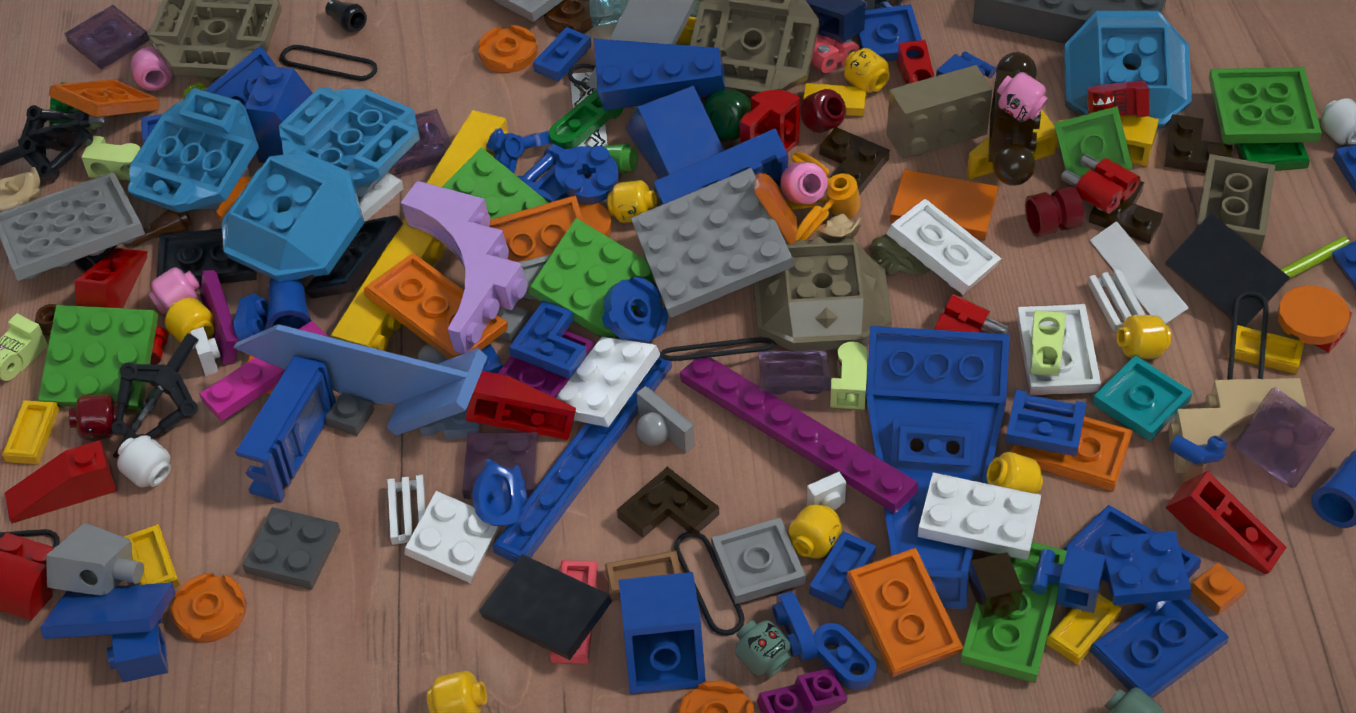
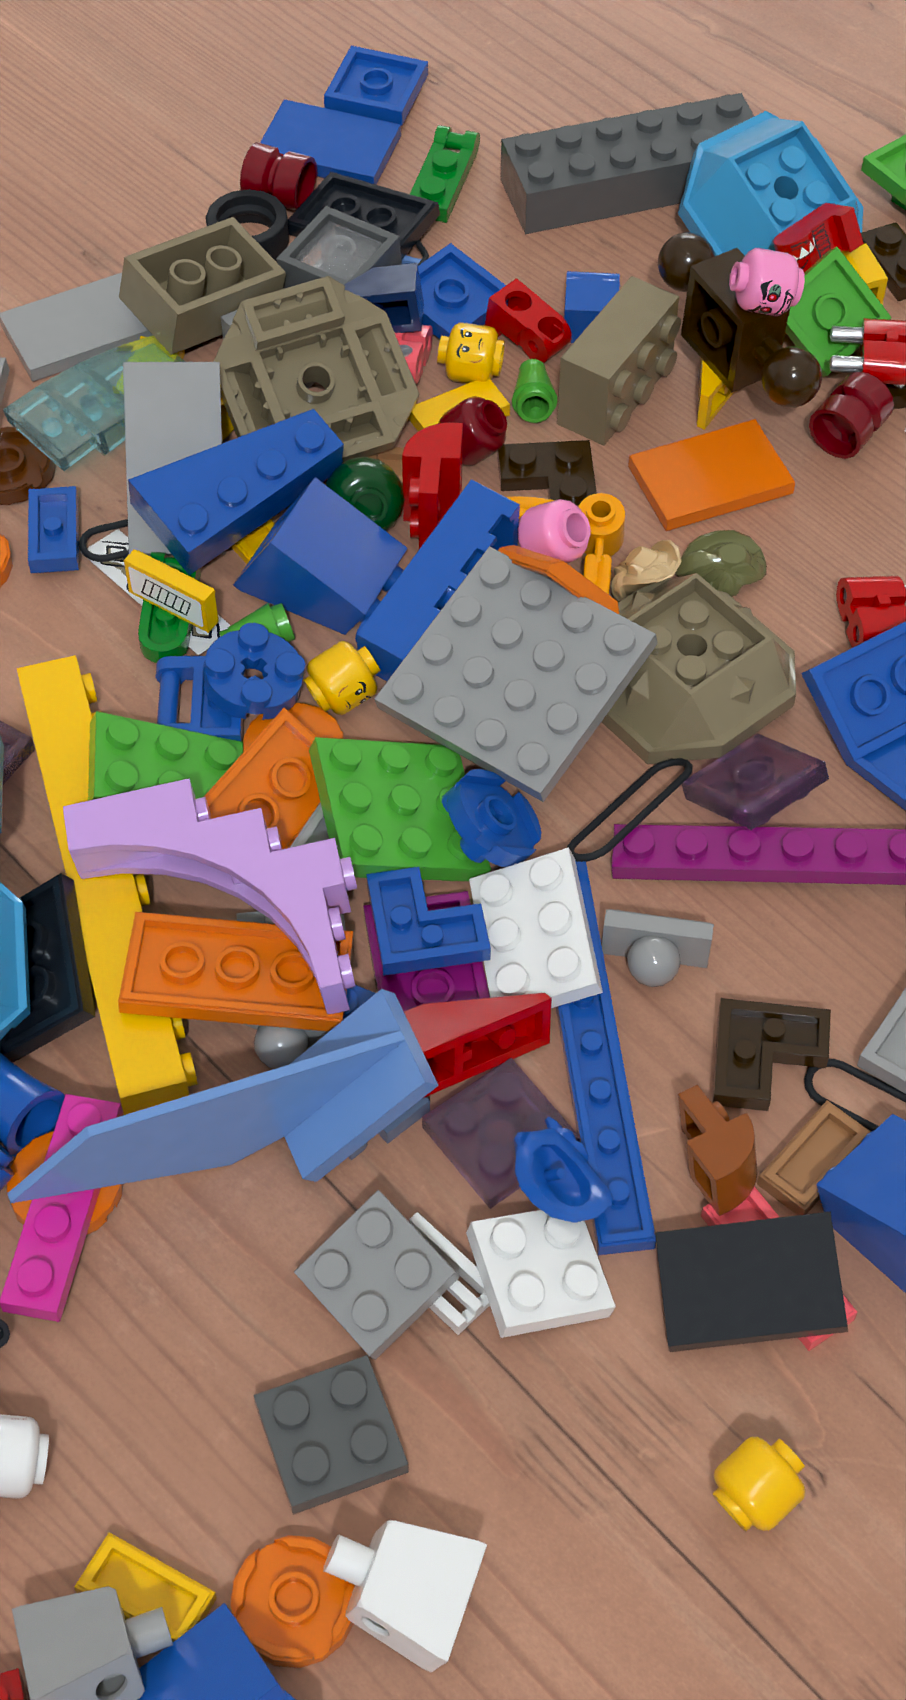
camera: 40 degrees left, 5 degrees up
(255, 629) = (409, 1587): none -> white torso
(287, 427) = (187, 1268): blue door -> none
(349, 413) = (229, 1192): dark grey plate -> none
(375, 489) = (376, 1274): none -> light grey plate
(511, 146) = (114, 690): blue piece -> none
(581, 110) = (171, 590): none -> tile
(590, 538) = (718, 1150): none -> dark orange brick
(850, 388) = (813, 732): yellowish green leg -> none
(877, 111) = (534, 393): none -> bright green cone
(943, 246) = (777, 525): white plate -> none

